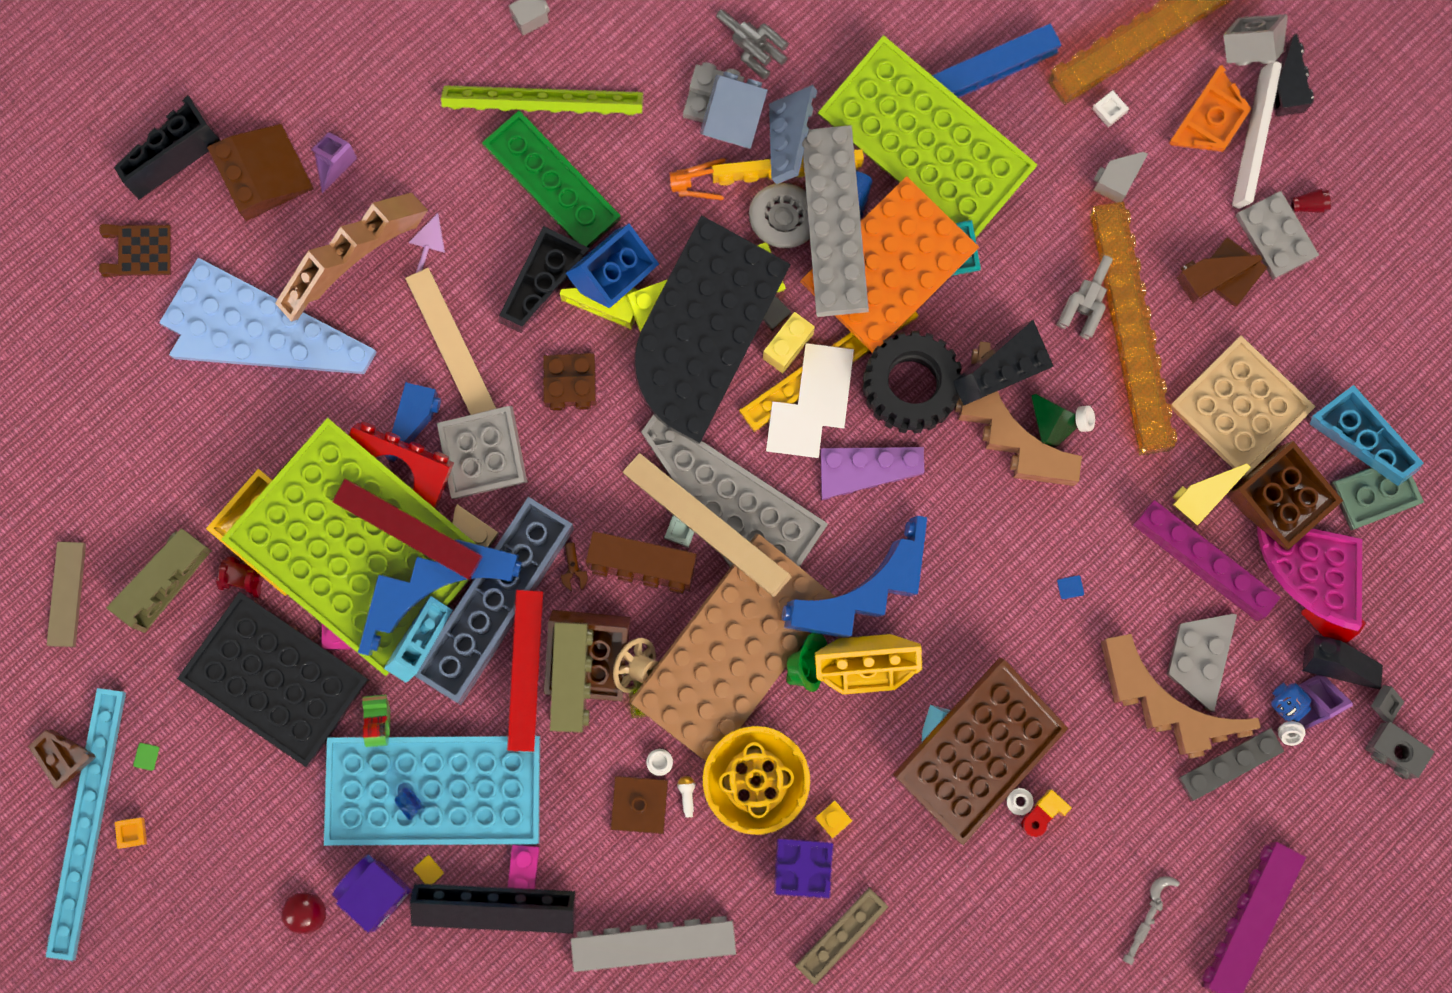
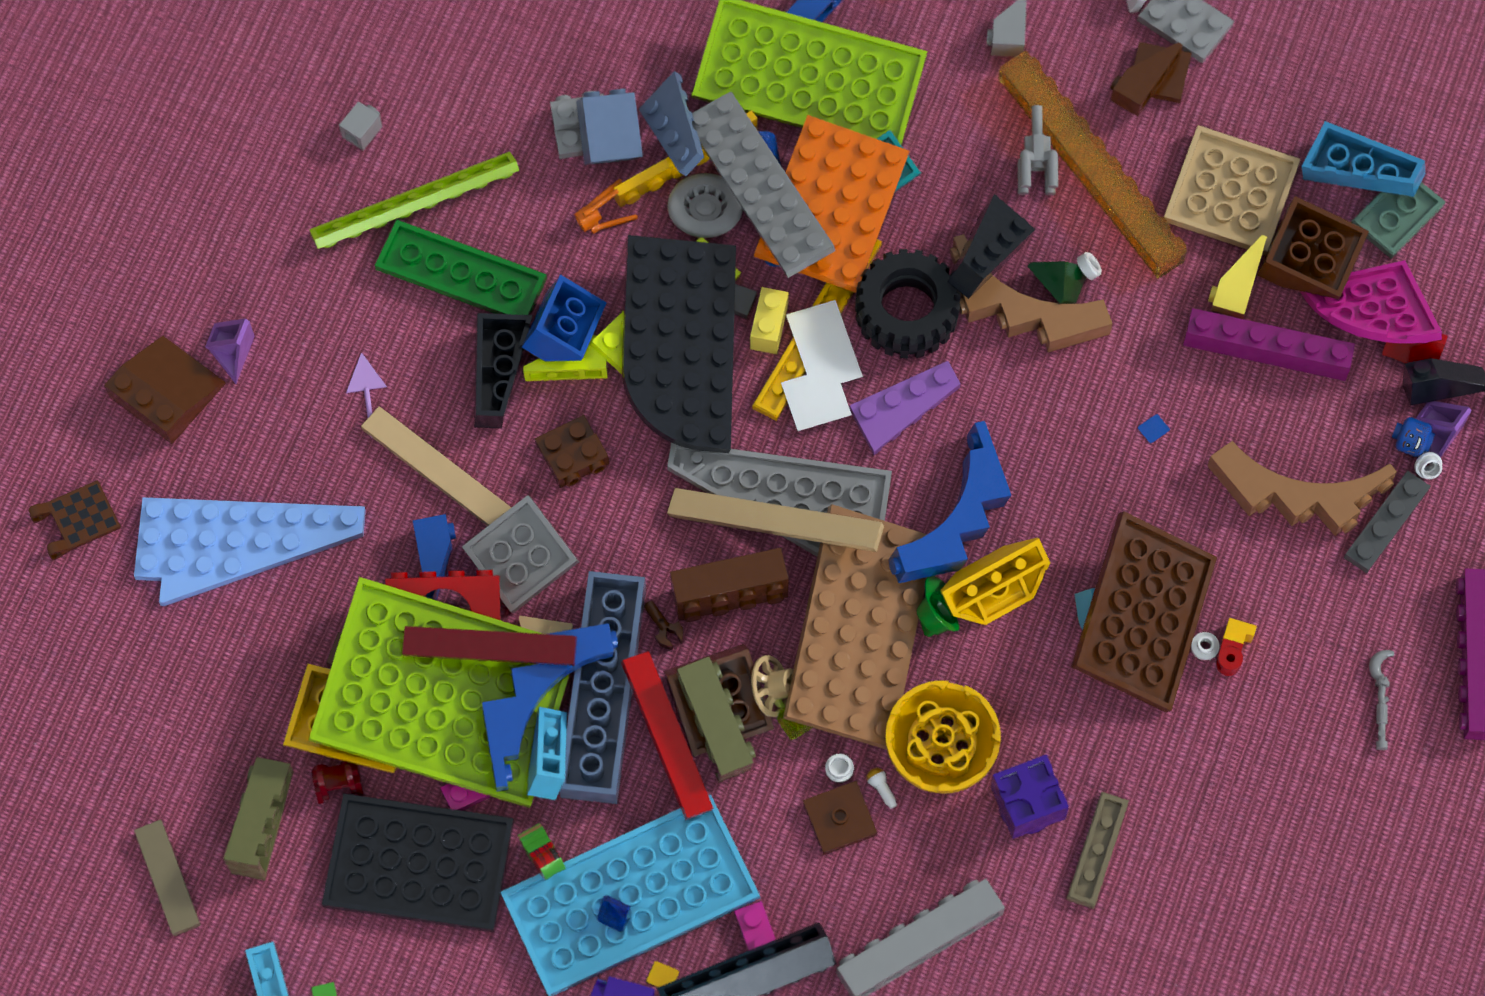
camera: 20 degrees left, 10 degrees down
(167, 150) = (64, 406): black wedge -> none
(350, 244) = (298, 407): medium nougat arch -> none
(679, 532) = (750, 542): light aqua tile -> none
(755, 42) = (596, 58): dark grey plant -> none
(833, 819) = (1034, 743): yellow plate -> none
(1201, 656) = (1309, 436): light grey wing -> none

